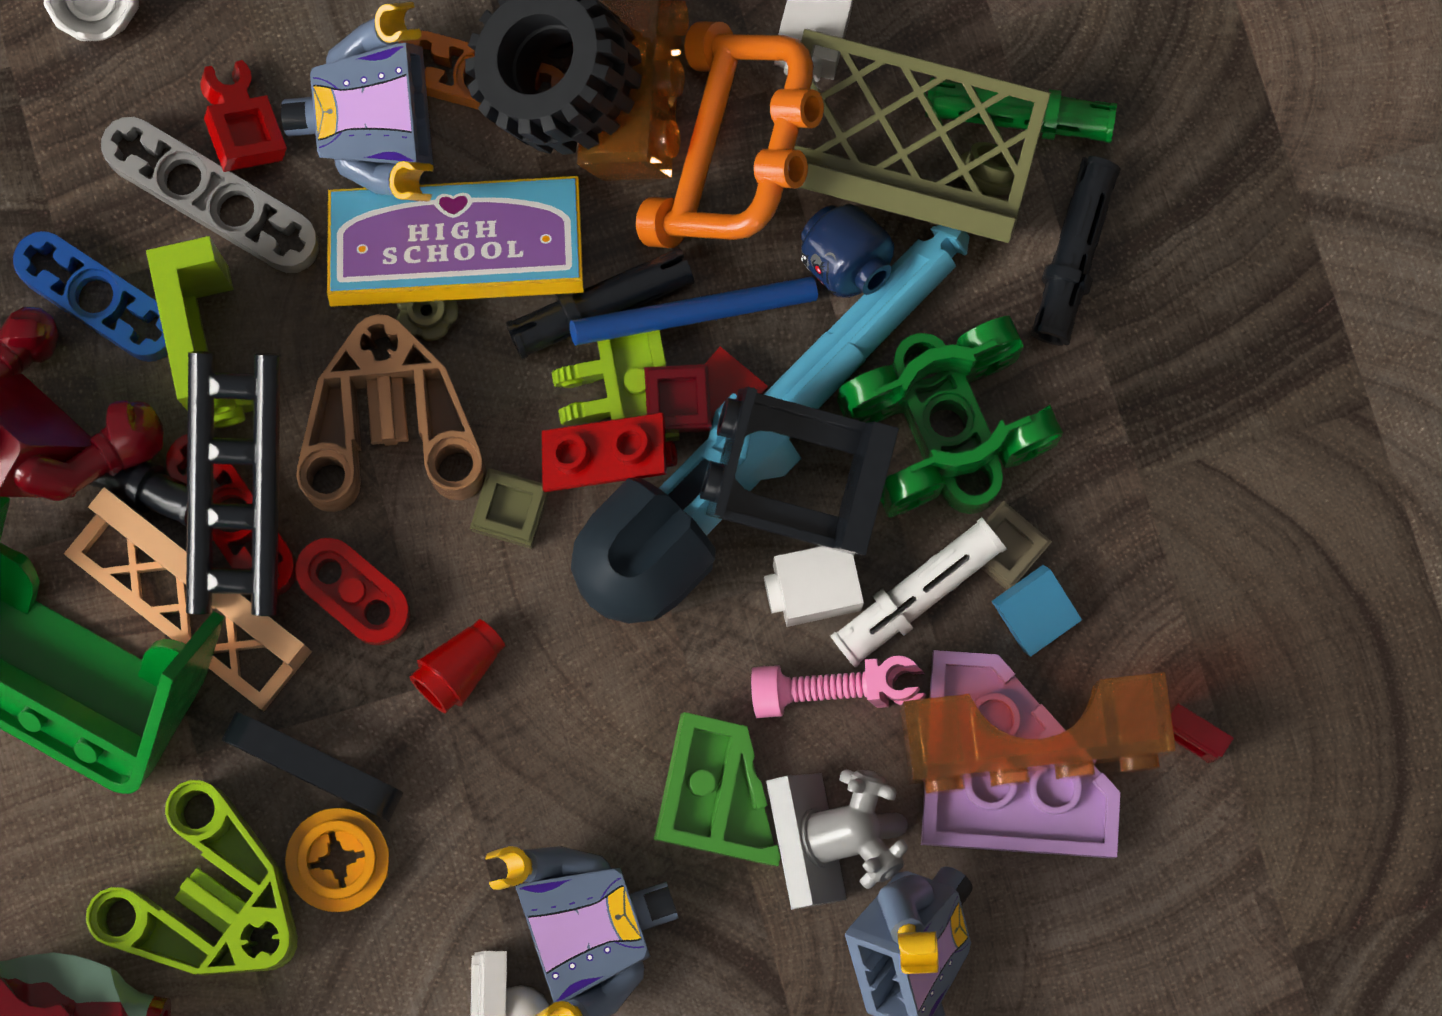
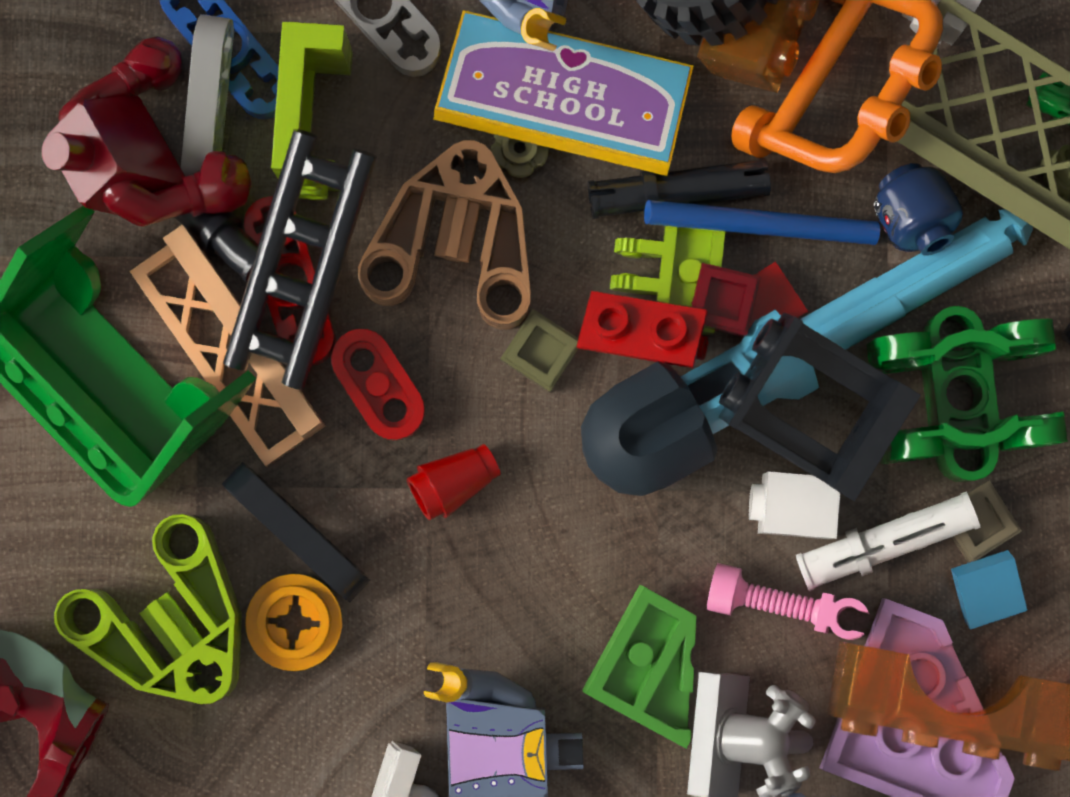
camera: 15 degrees right, 5 degrees up
(90, 344) = (207, 90): none -> light grey beam

